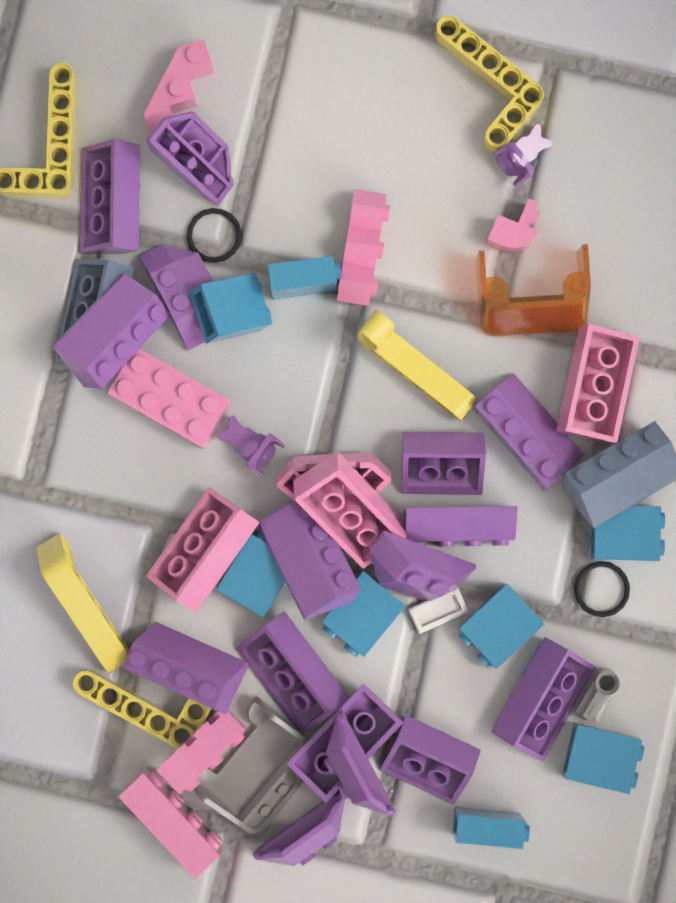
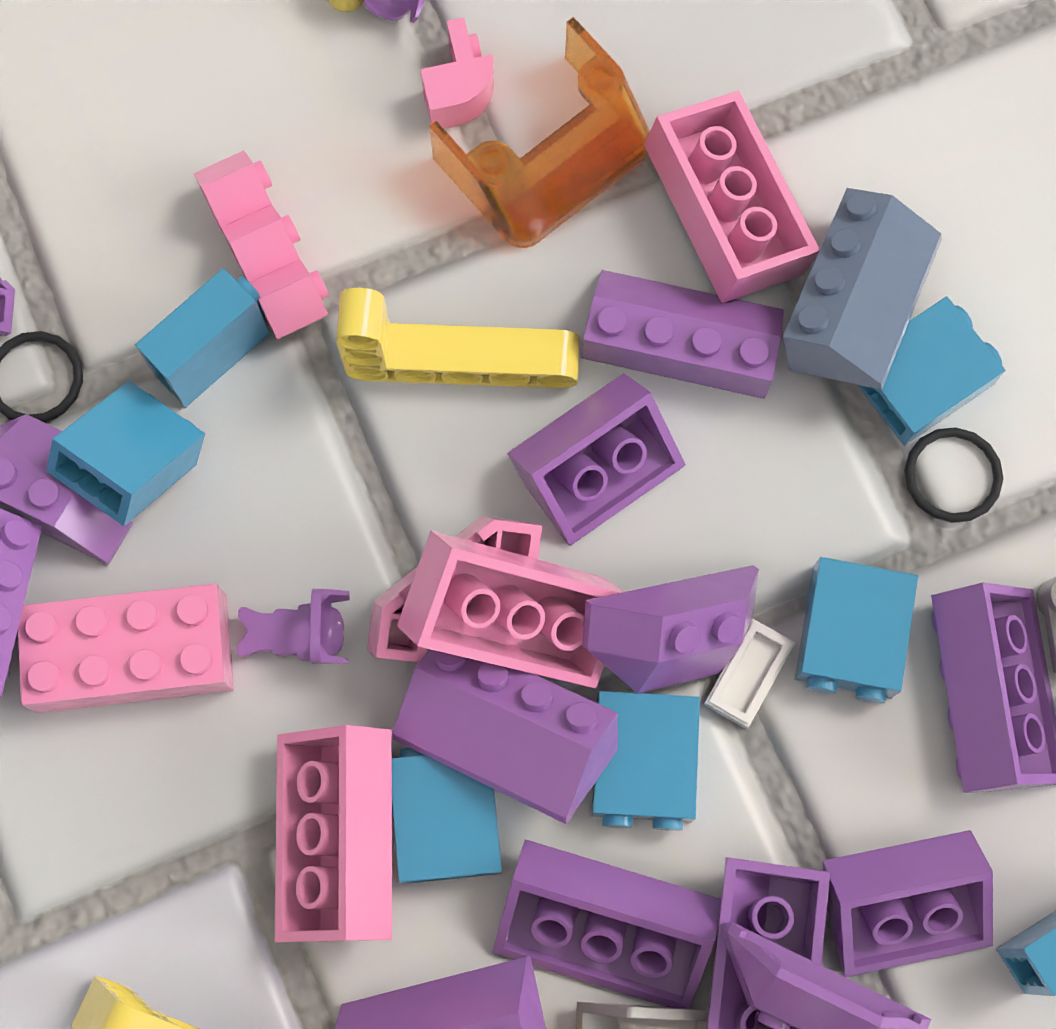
camera: 35 degrees left, 10 degrees down
(461, 524) = (691, 518): medium lavender slope -> none

